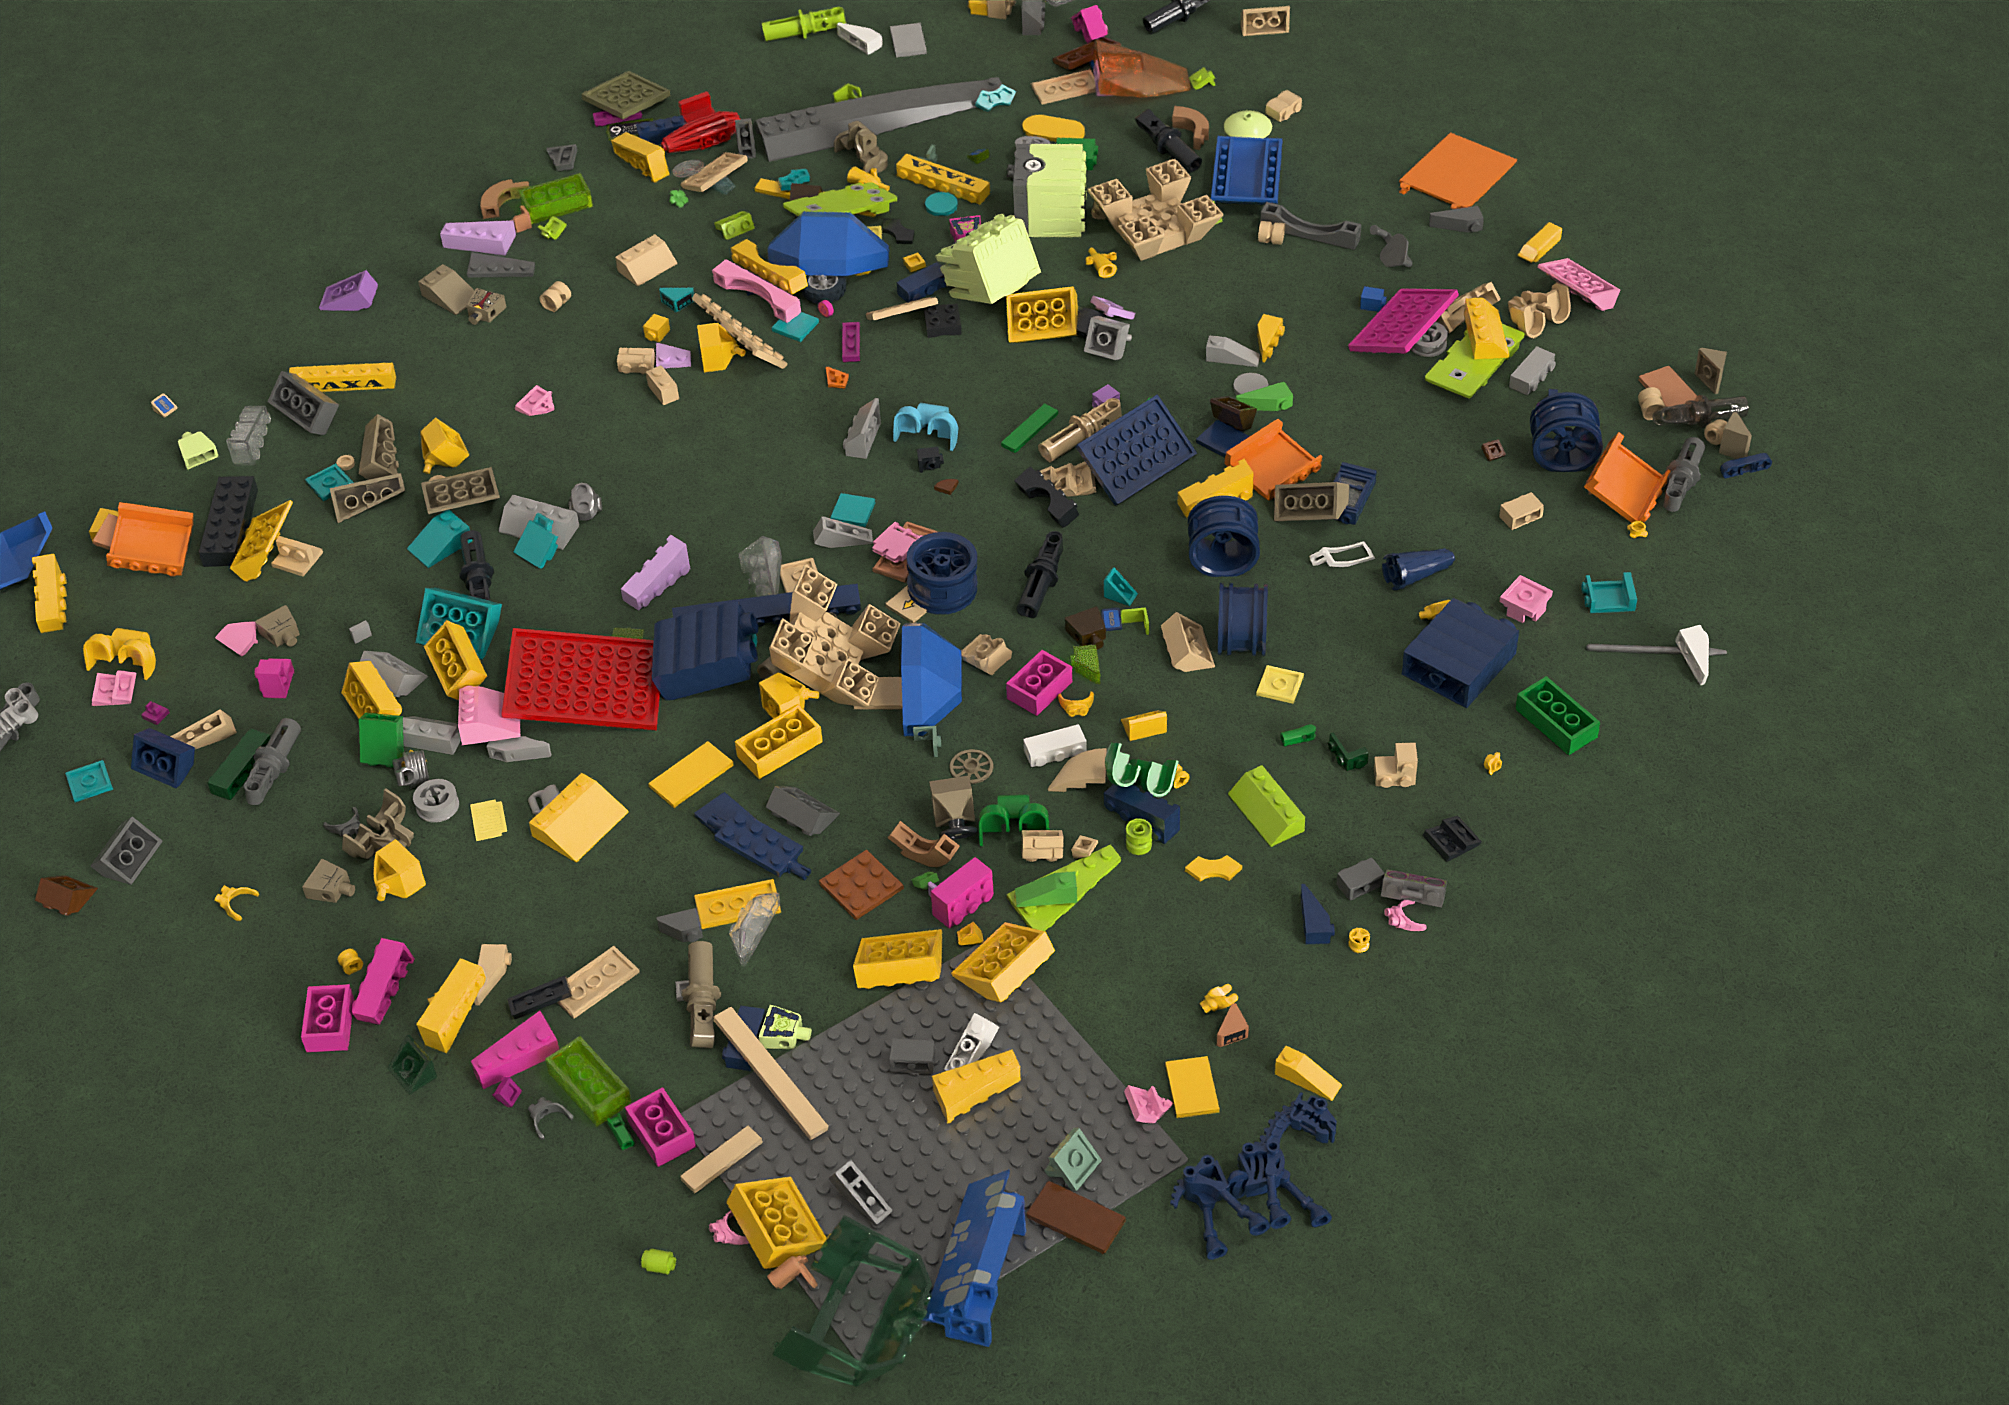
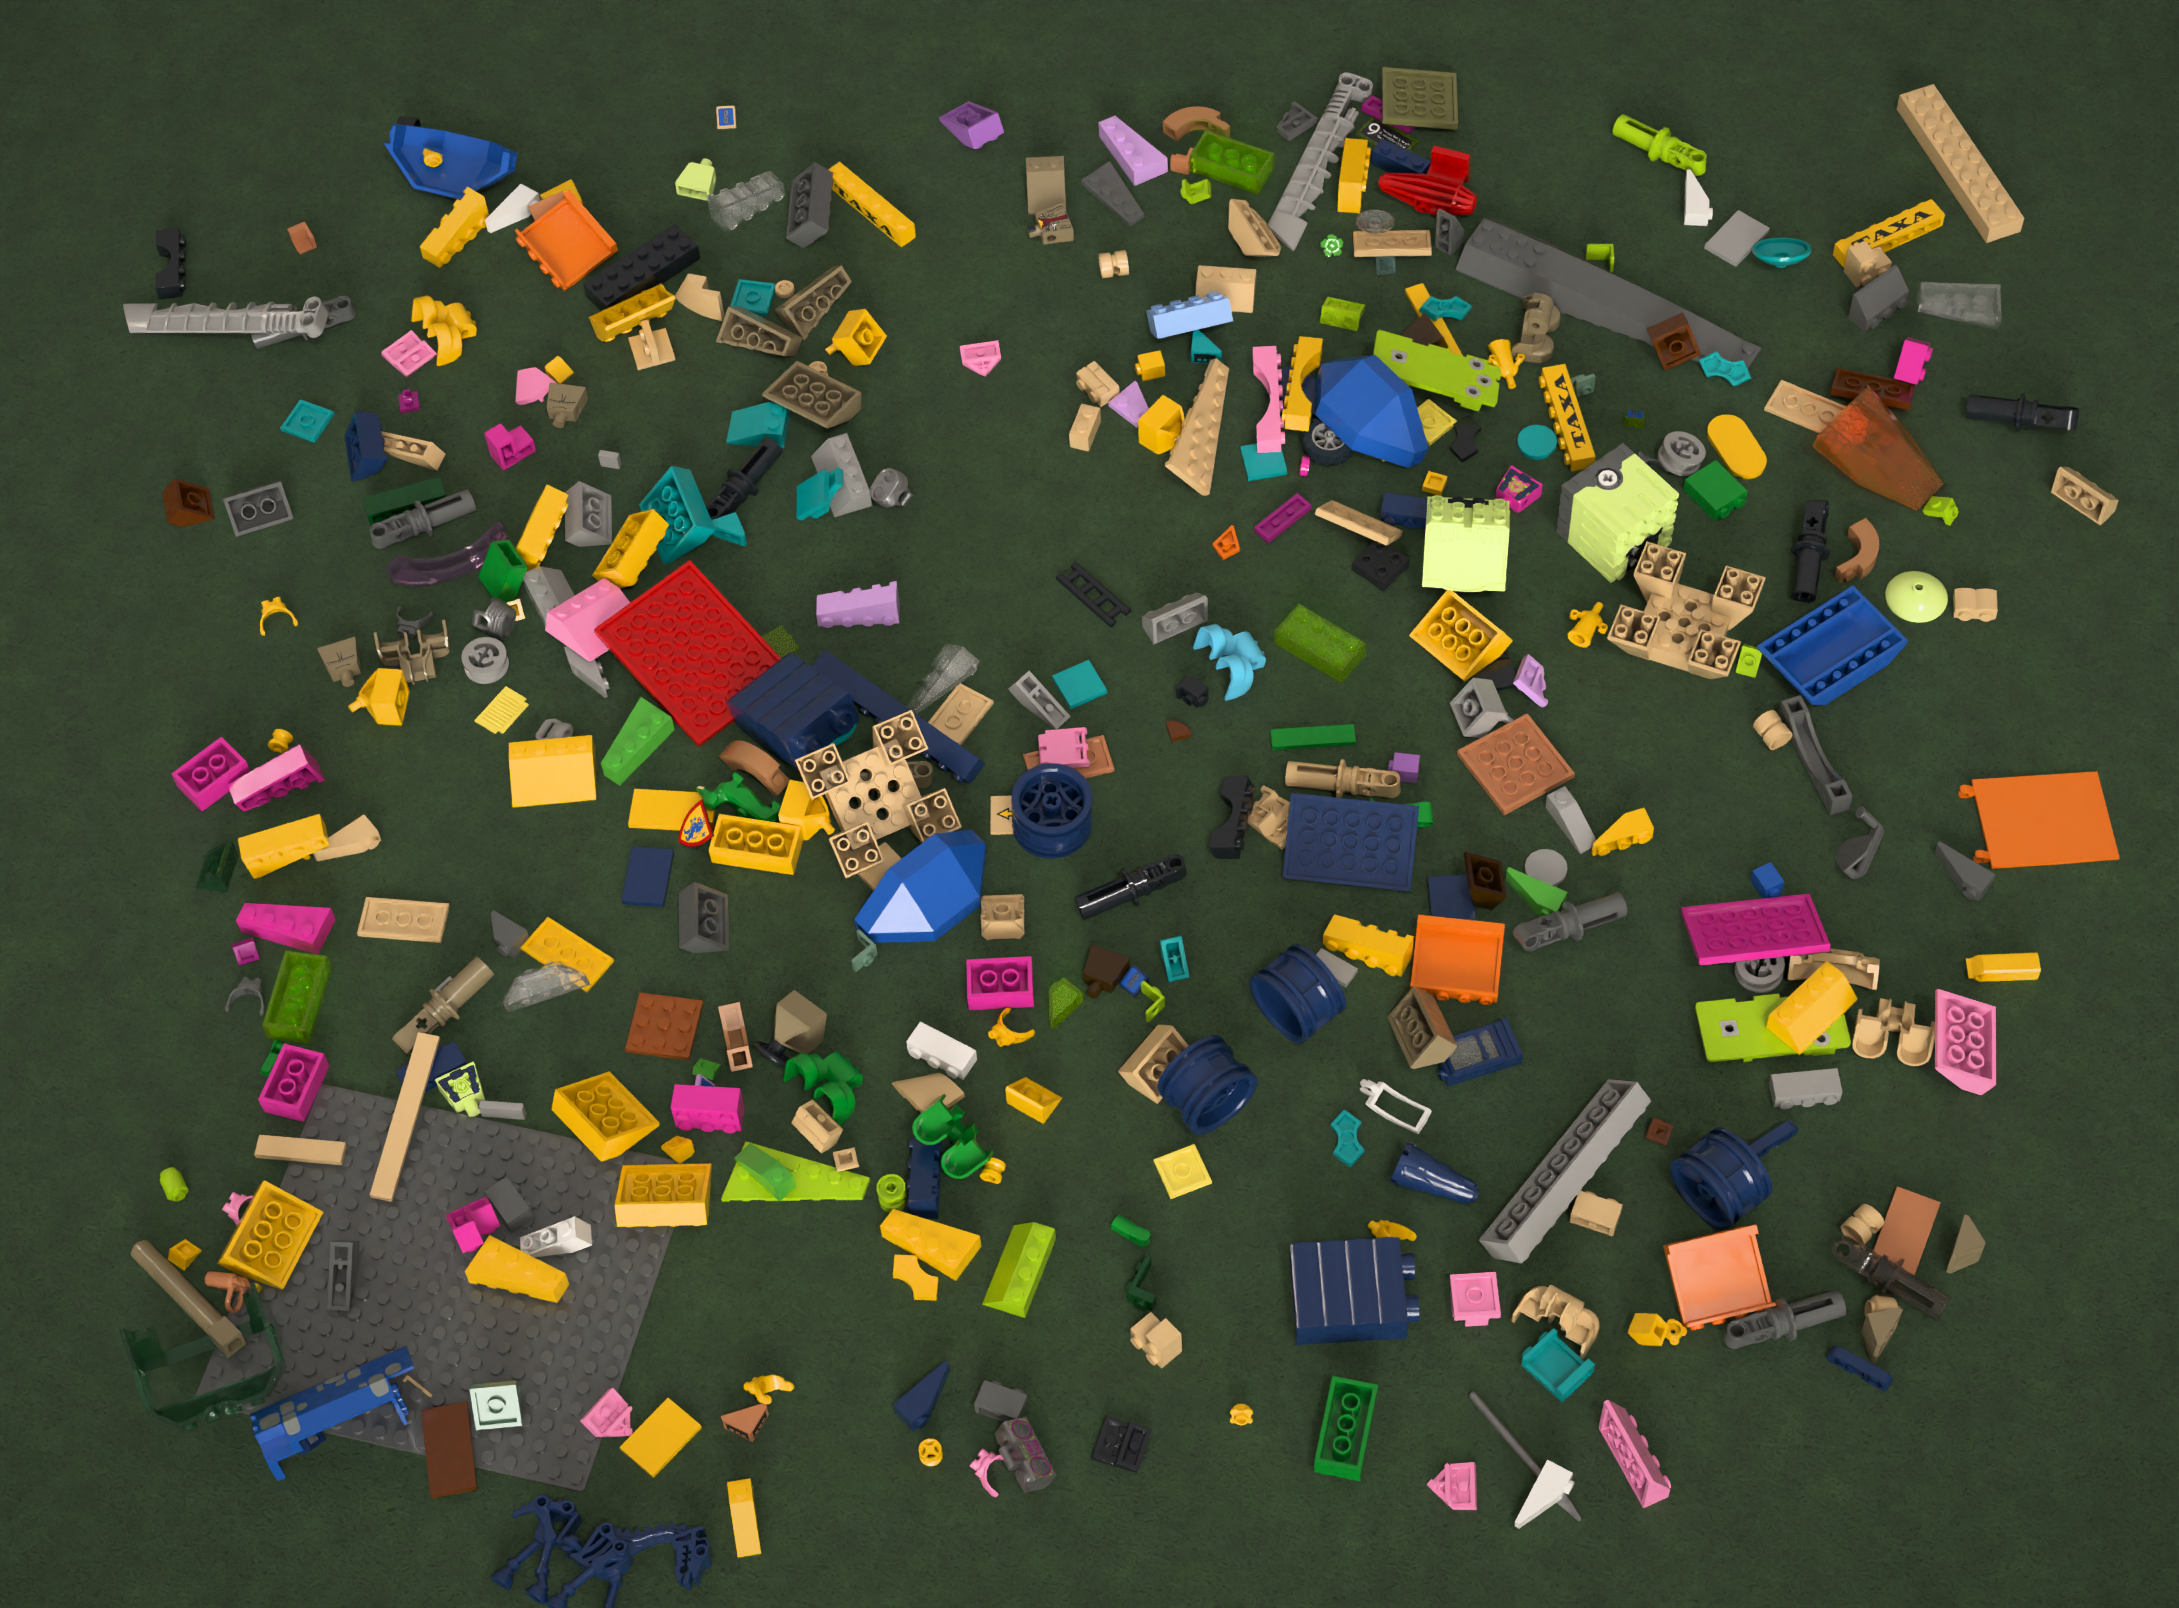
camera: 50 degrees right, 10 degrees up
(77, 554) = (512, 208): none -> white slope
(245, 614) = (558, 370): none -> yellow slope
(305, 500) = (698, 298): none -> tan slope
(336, 763) = (448, 567): none -> clear purple arch
(510, 602) = (729, 529): none -> teal slope
(539, 997) = (351, 896): black plate -> none
(596, 151) = (1311, 170): none -> light grey piece
(611, 753) = (636, 741): none -> bright green wedge
(621, 223) = (1251, 230): none -> tan wedge
(646, 284) = (1189, 315): none -> light blue brick
(711, 699) = (756, 762): none -> medium nougat arch
(724, 1294) = (183, 1254): none -> yellow slope
(727, 763) = (696, 826): none -> shield
(731, 727) = (741, 798): none -> green animal
(759, 844) = (634, 920): dark blue plate -> none
(783, 457) = (1093, 605): none -> black bar
(826, 1015) = (502, 1110): none -> light grey tile
(832, 1297) = (218, 1328): none -> dark tan brick
(908, 1084) = (471, 1222): none -> dark pink brick
(946, 26) = (1781, 251): none -> teal dish
(951, 101) = (1673, 341): none -> reddish brown slope
(967, 380) = (1320, 643): none -> clear neon green brick
(972, 765) = (866, 1006): dark tan wheel -> none
(1161, 352) = (1515, 764): none -> nougat plate
(1201, 838) = (933, 1243): none -> yellow wedge
(1306, 393) = (1570, 921): none -> dark grey piece
(1349, 595) = (1348, 1147): none -> teal tile
(1481, 502) = (1565, 1171): none -> light grey brick
(1578, 557) = (1578, 1322): none -> tan piece
(1628, 536) = (1648, 1329): none -> yellow brick
(1647, 693) = (1457, 1486): none -> bright pink slope
(1711, 592) = (1632, 1454): none -> bright pink slope

